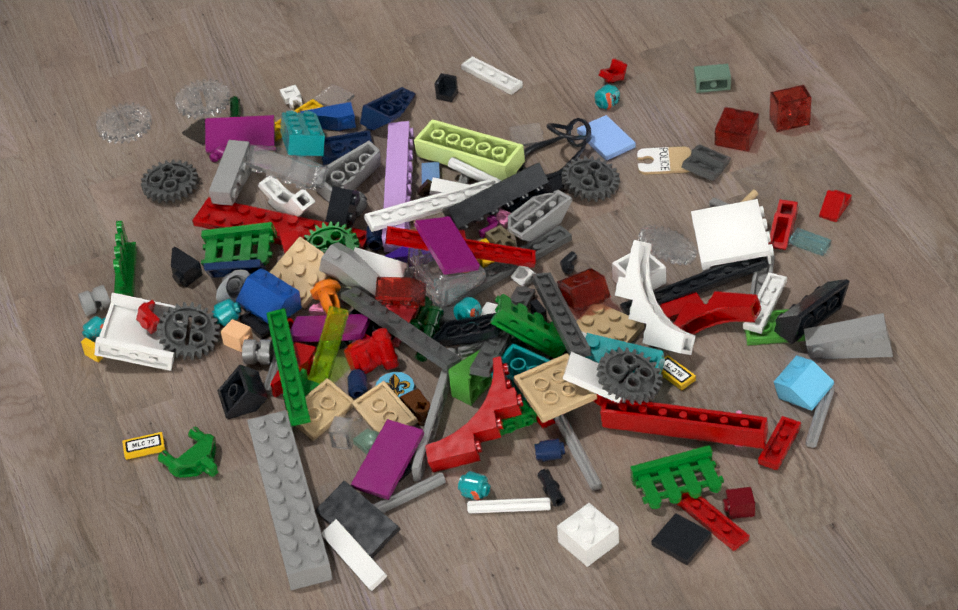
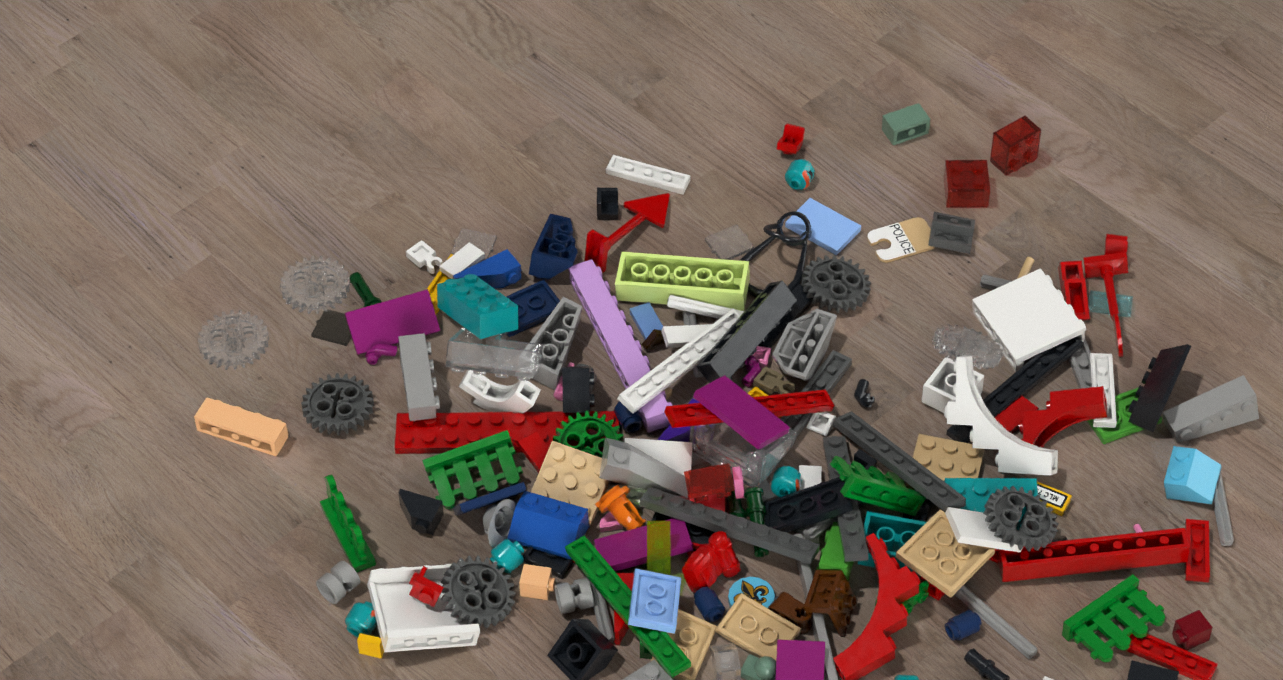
camera: 25 degrees left, 5 degrees up
(94, 181) = (241, 426): none -> light nougat brick
(307, 366) = (654, 601): none -> light blue tile
(316, 102) = (461, 260): none -> white tile
(424, 299) = (738, 482): none -> bright pink tile
(452, 402) = (831, 595): none -> reddish brown bracket
(477, 98) = (649, 208): none -> red piece
(584, 289) = (907, 423): clear red brick -> none
(816, 212) = (1106, 267): none -> red piece

